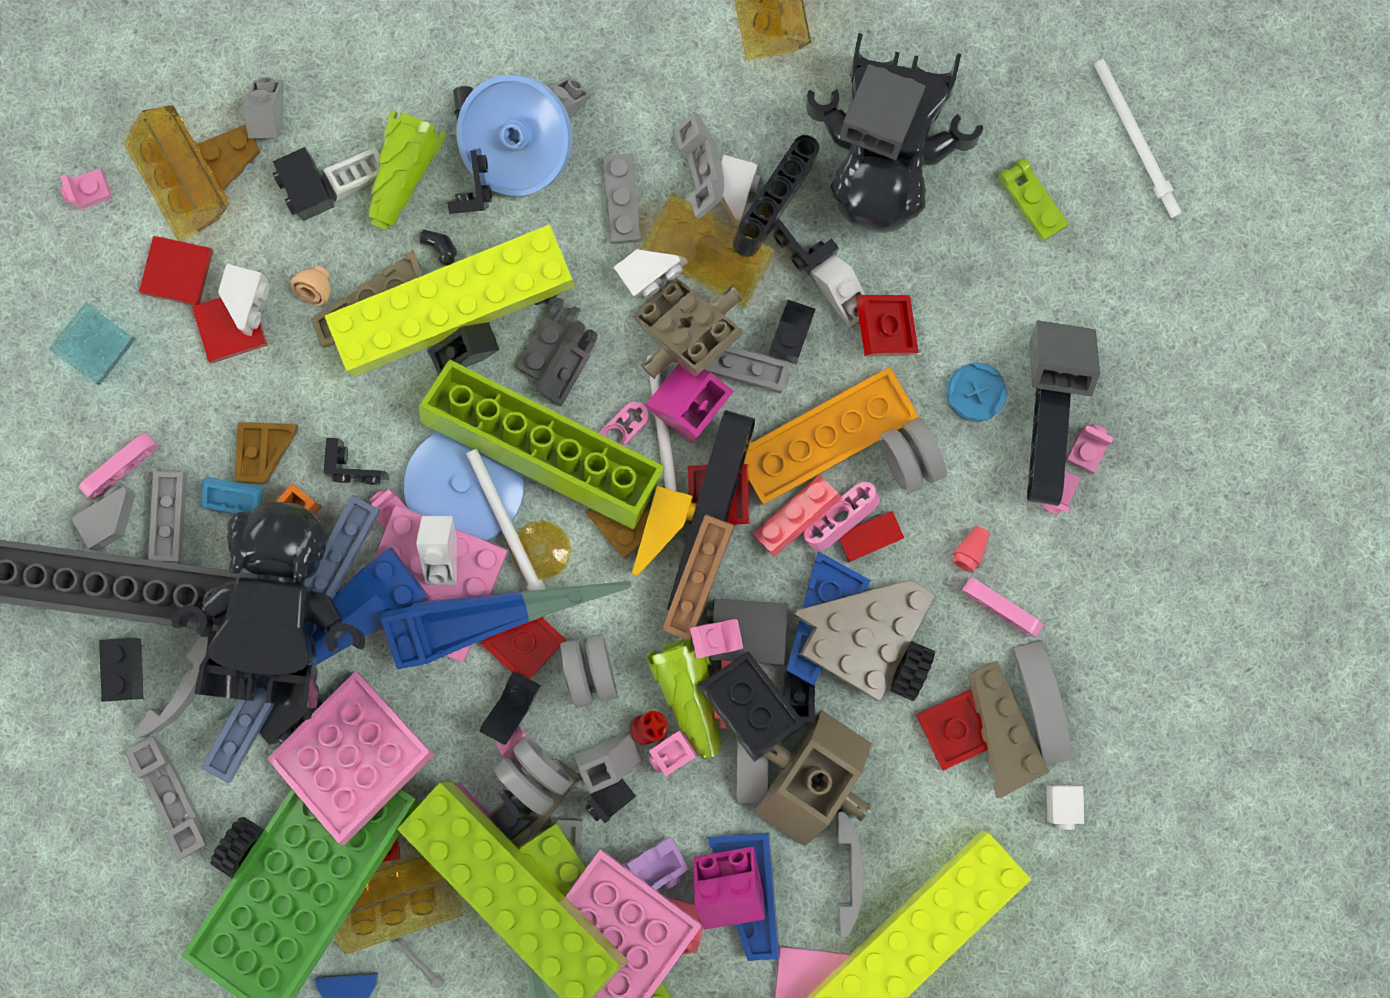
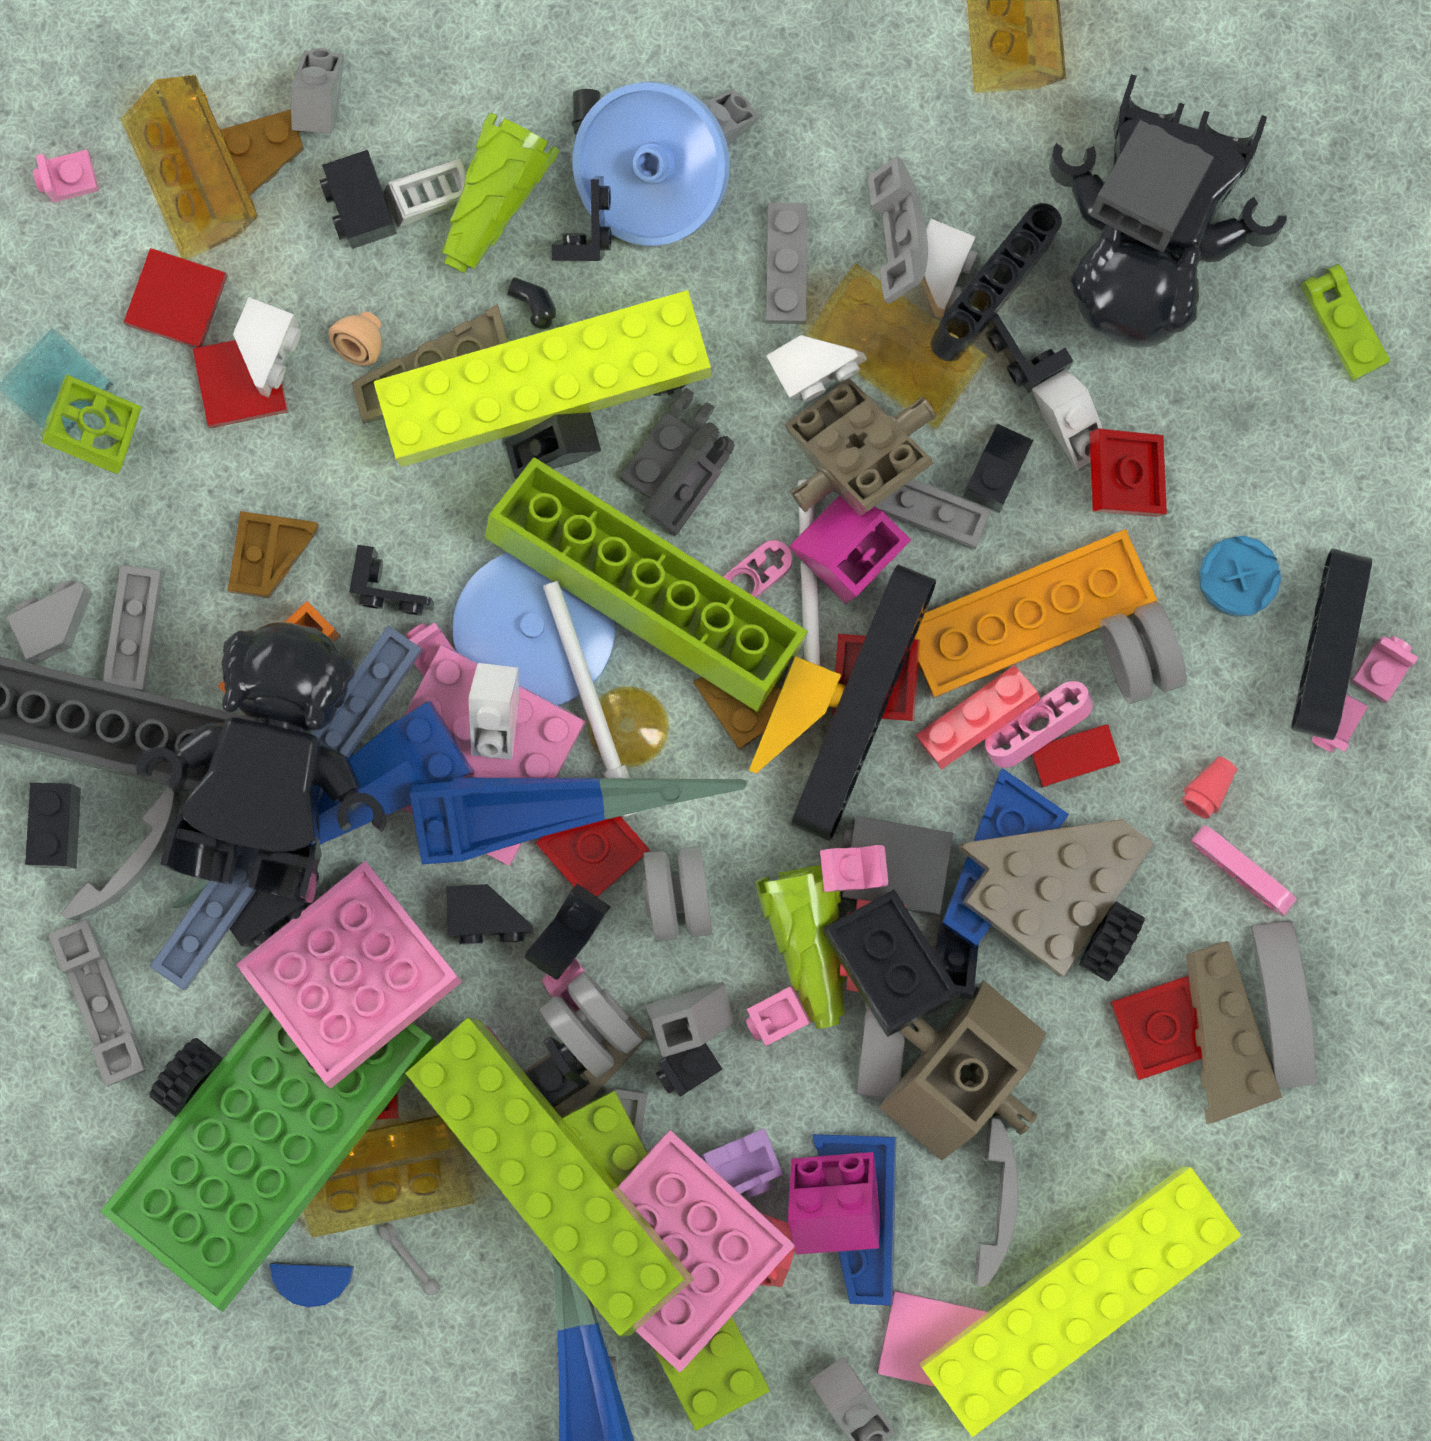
camera: 10 degrees right, 0 degrees up
(105, 345) = (123, 410): none -> lime piece
(115, 467) = (69, 555): bright pink beam -> none
(230, 495) = (220, 609): dark azure plate -> none
(447, 698) = (481, 912): none -> black slope
(650, 720) = (752, 969): red wheel -> none
(698, 576) = (838, 783): medium nougat plate -> none
(1064, 358) = (1362, 542): dark grey brick -> none
(1065, 806) = (1298, 1144): white brick -> none

